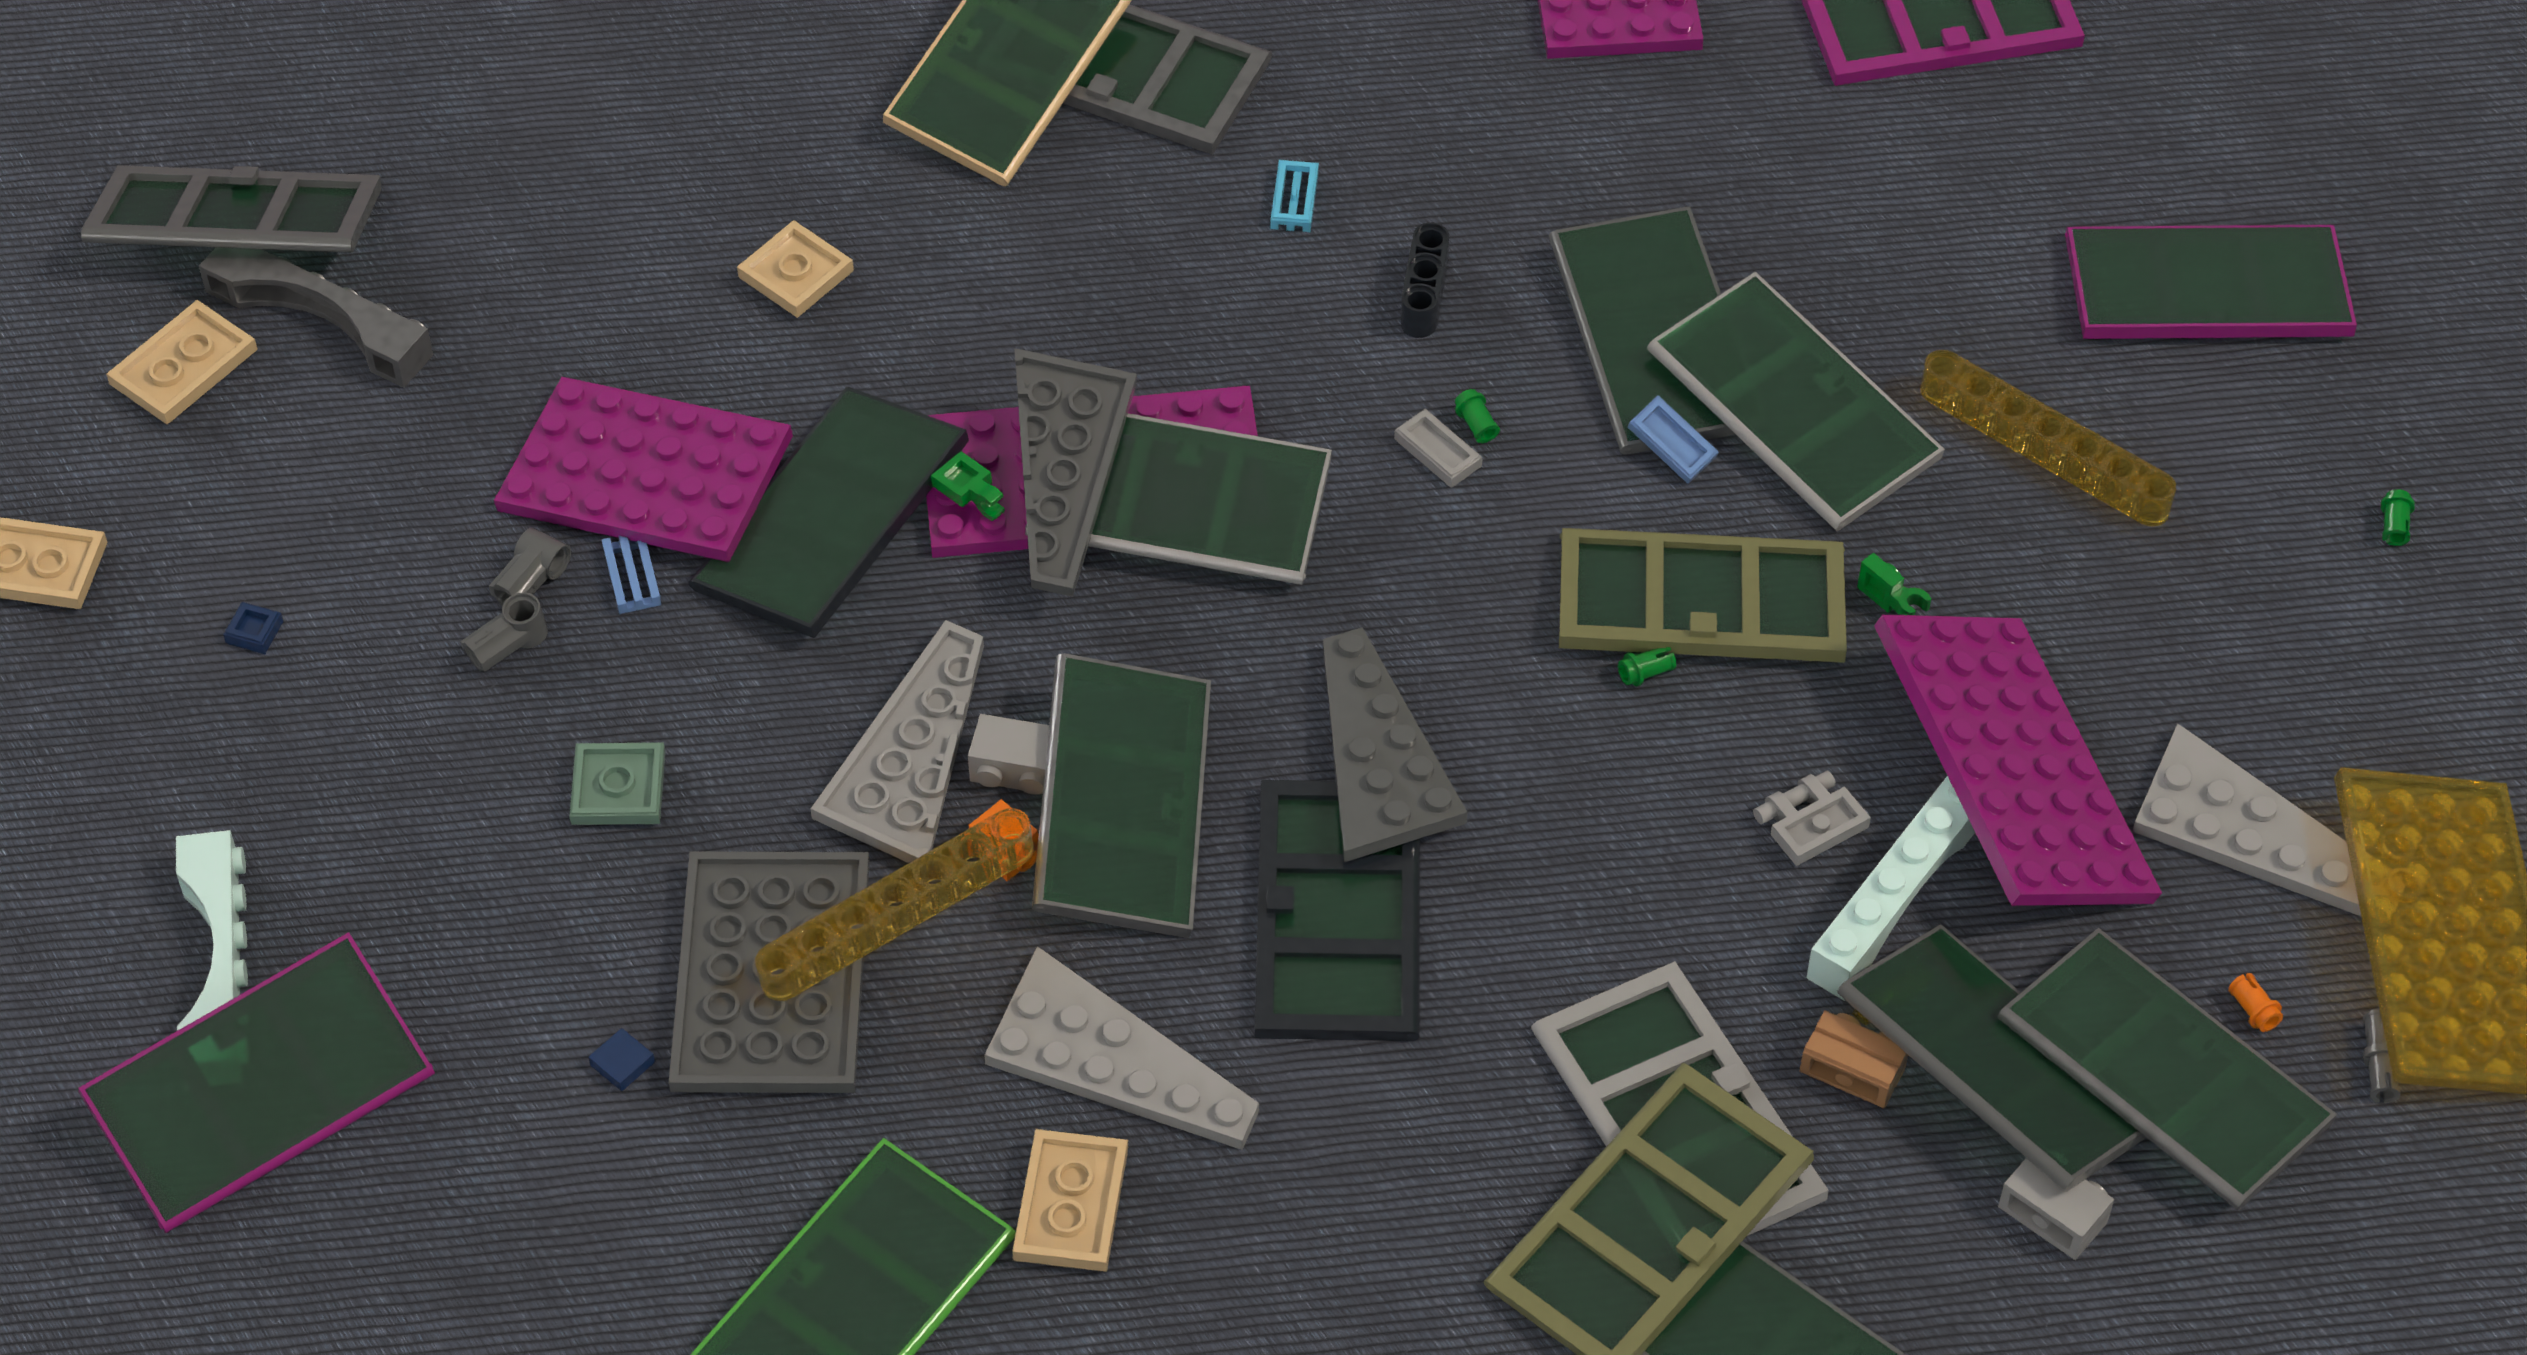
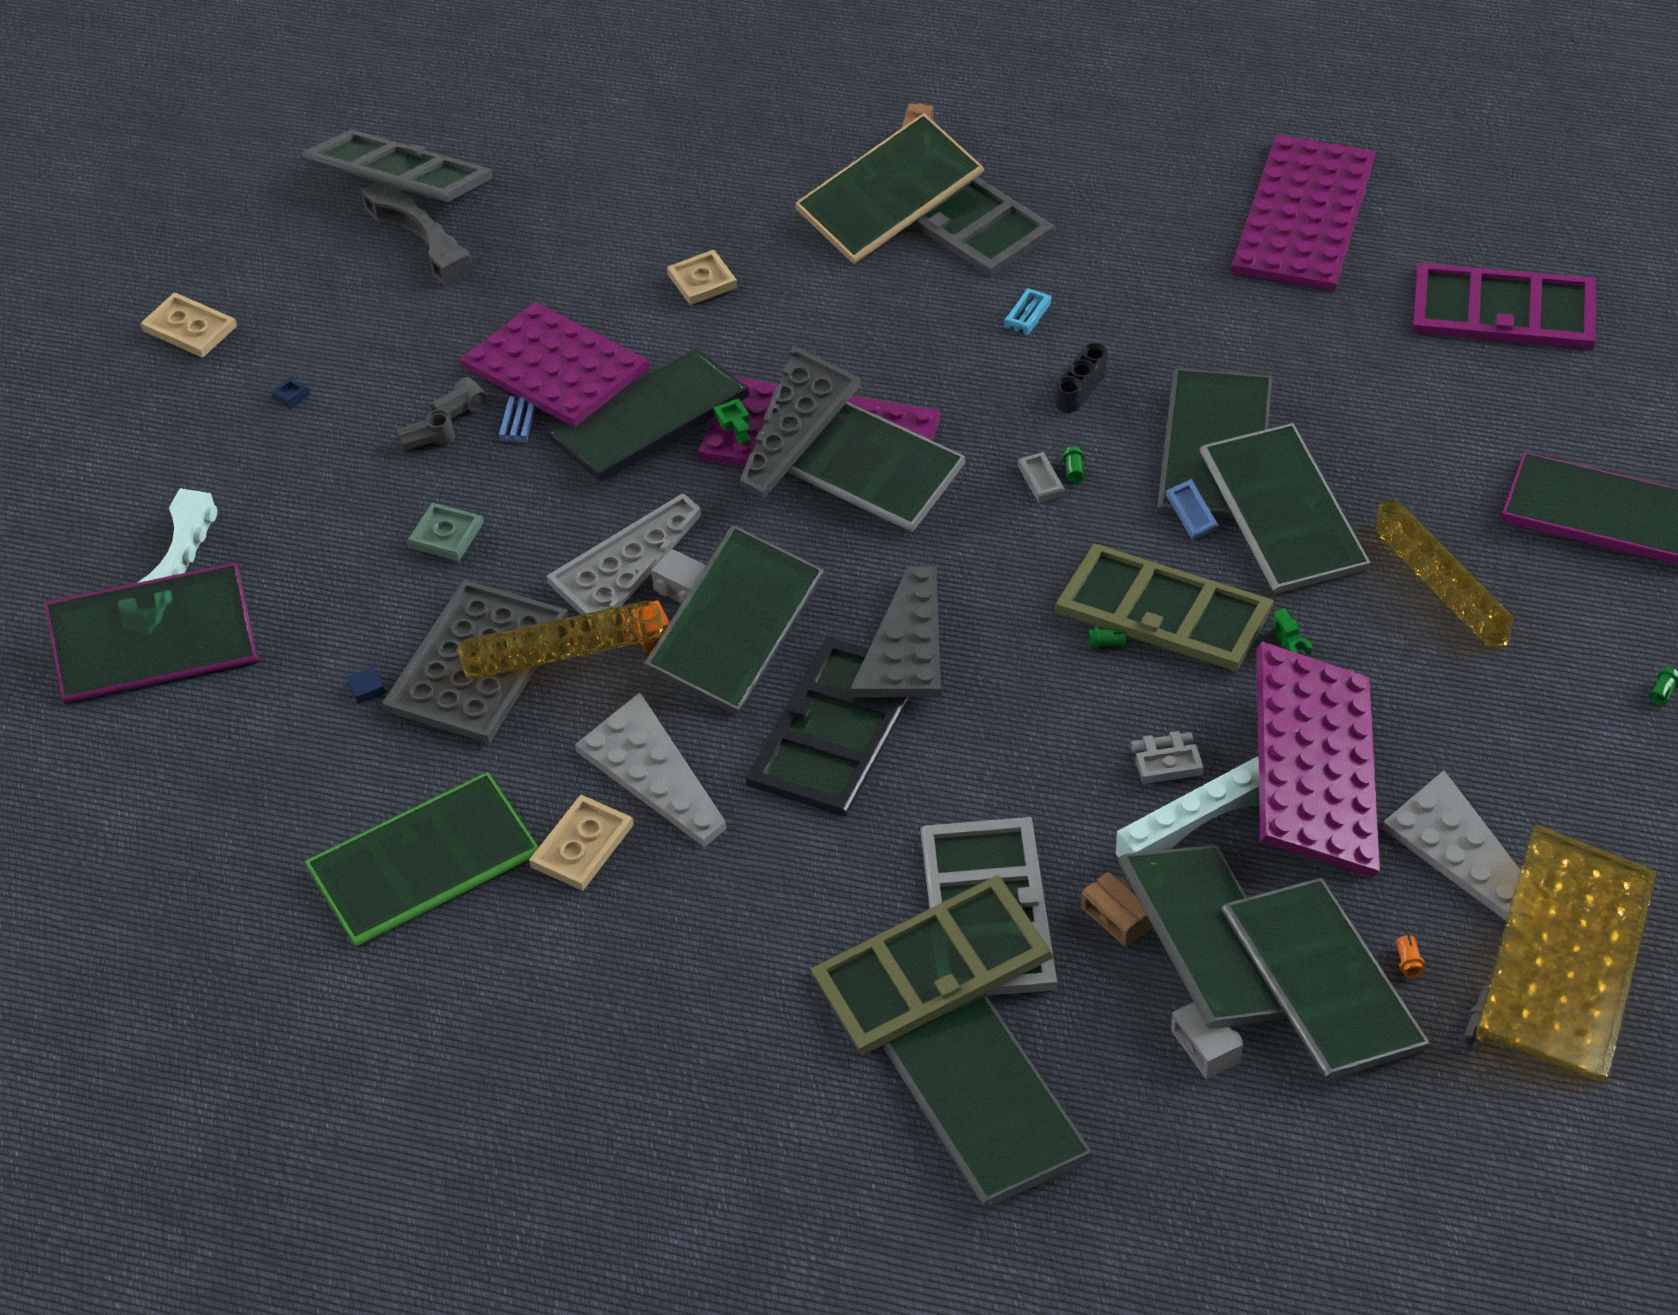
camera: 25 degrees right, 5 degrees down
(182, 362) = (328, 240): tan plate -> none

